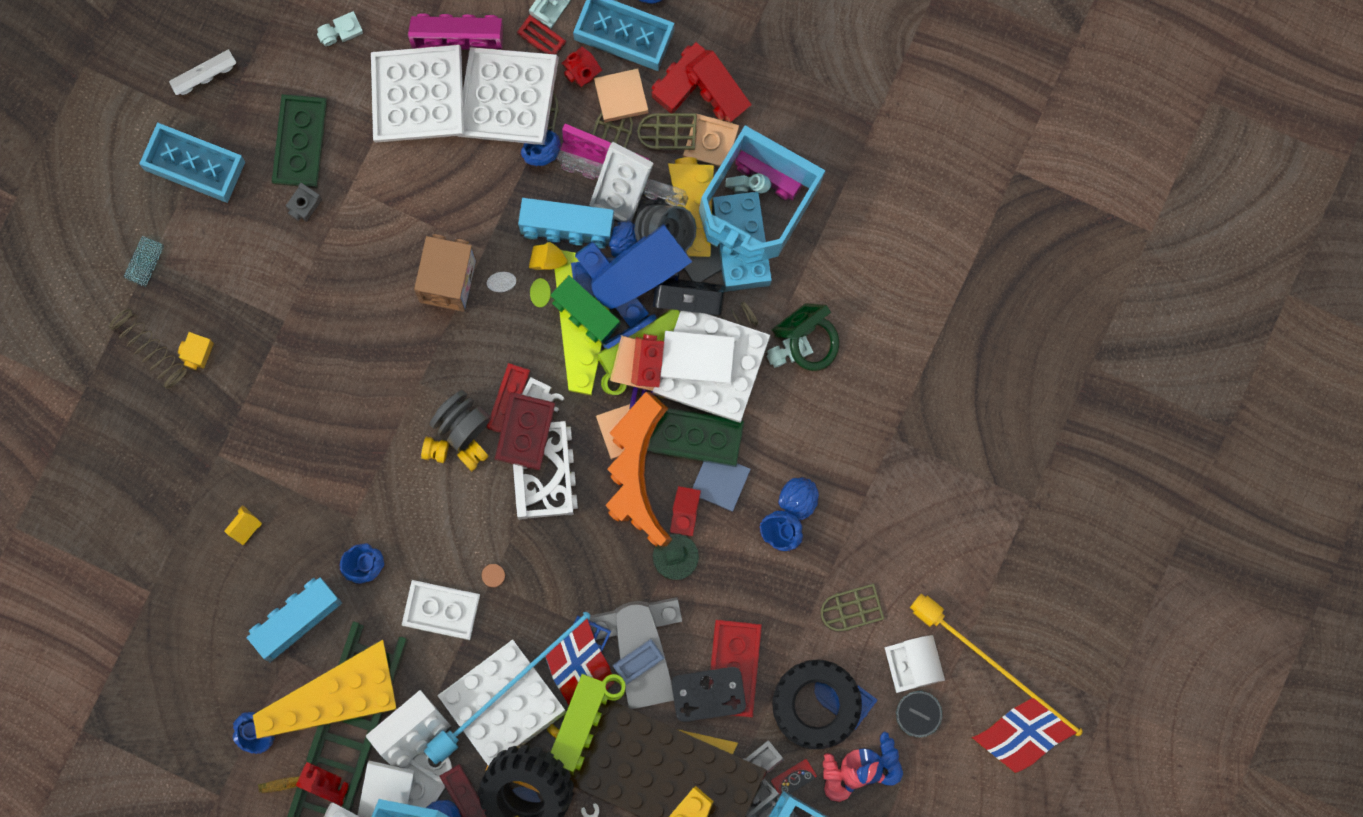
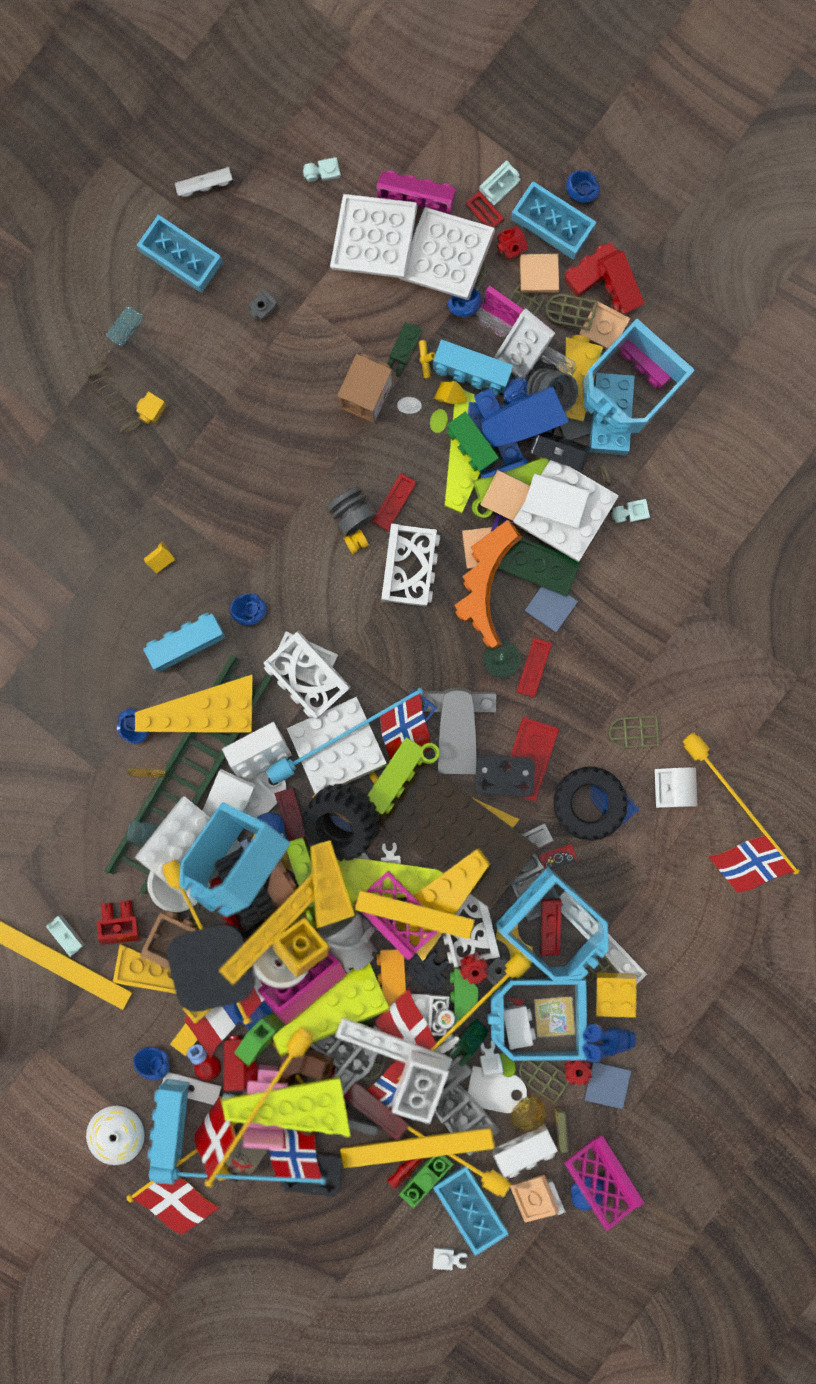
camera: 20 degrees right, 5 degrees up
(299, 140) = (270, 254): dark green tile -> none
(322, 783) = (179, 779): red hinge -> none
(434, 450) = (326, 530): yellow wheel -> none
(439, 595) = (306, 648): none -> white fence
(481, 214) = (404, 346): none -> dark green hinge
(493, 575) = (351, 642): nougat tile -> none
(508, 223) = (425, 358): none -> yellow piece
(524, 431) = (402, 530): dark red tile -> none
(541, 391) = (420, 503): white plate -> none
(638, 661) = (454, 737): sand blue tile -> none
(647, 361) = (514, 495): red brick -> none
(685, 511) = (517, 623): red slope -> none
(716, 559) = (534, 667): none -> red tile
(743, 184) = (623, 367): light aqua plate -> none
(781, 530) = (592, 656): blue hair -> none
(799, 497) = (612, 633): blue hair -> none
(802, 323) = (645, 492): dark green tile -> none
(862, 768) = (614, 862): hair -> none
(919, 714) = (670, 828): black tile -> none

